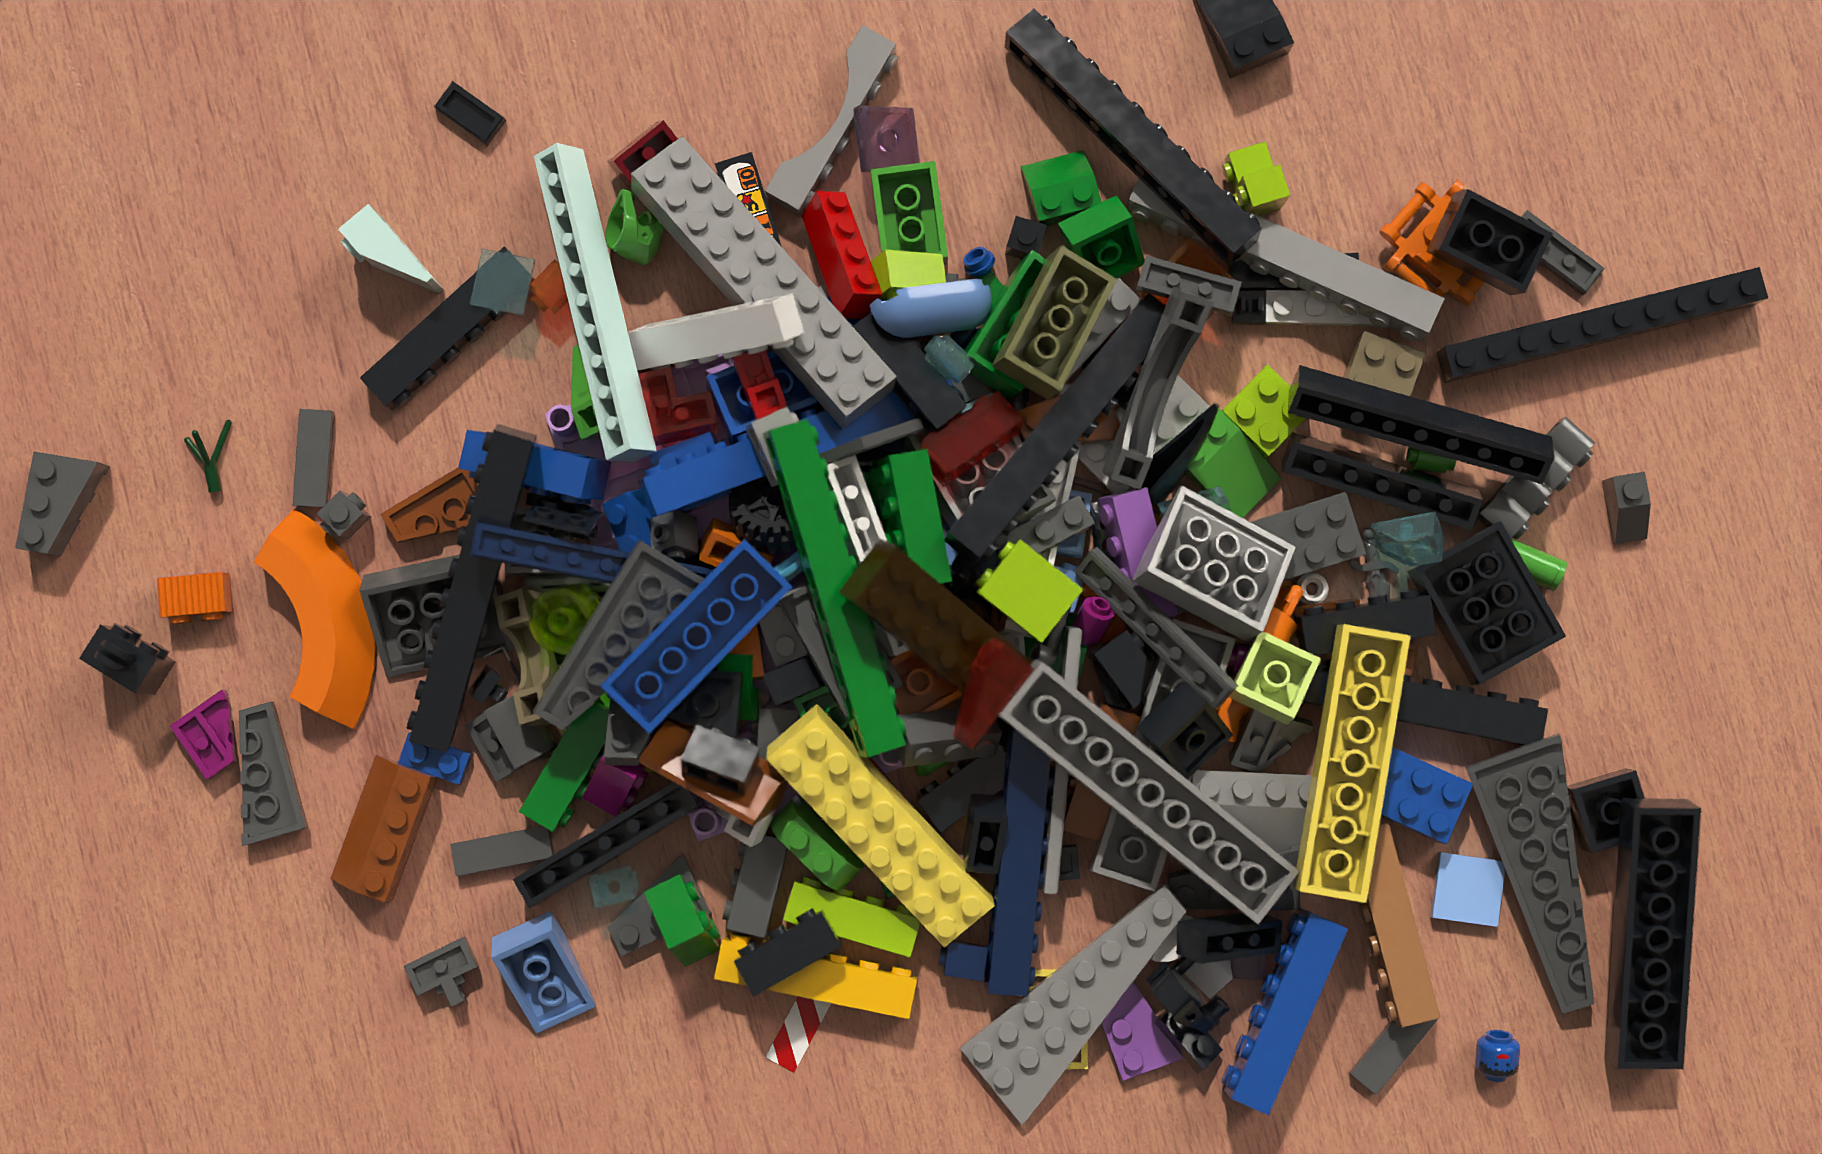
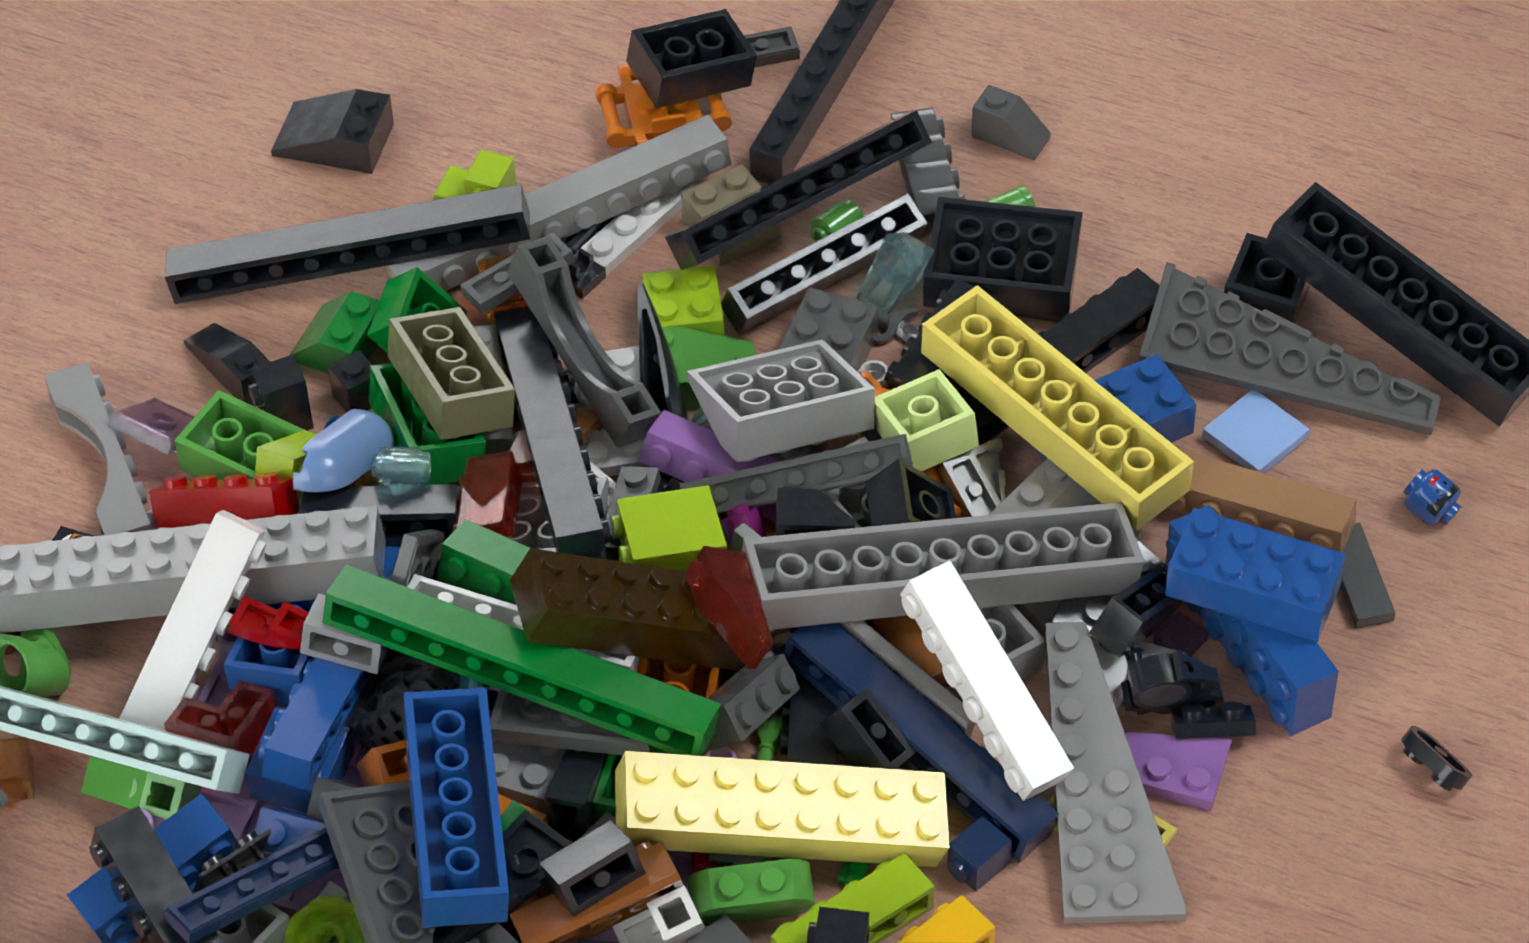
camera: 50 degrees left, 35 degrees down
(966, 204) = (282, 391): none -> black brick
(982, 132) = (227, 358): none -> black slope
(1069, 895) = (986, 681): none -> white brick
(1299, 1013) = (1255, 574): none -> blue brick

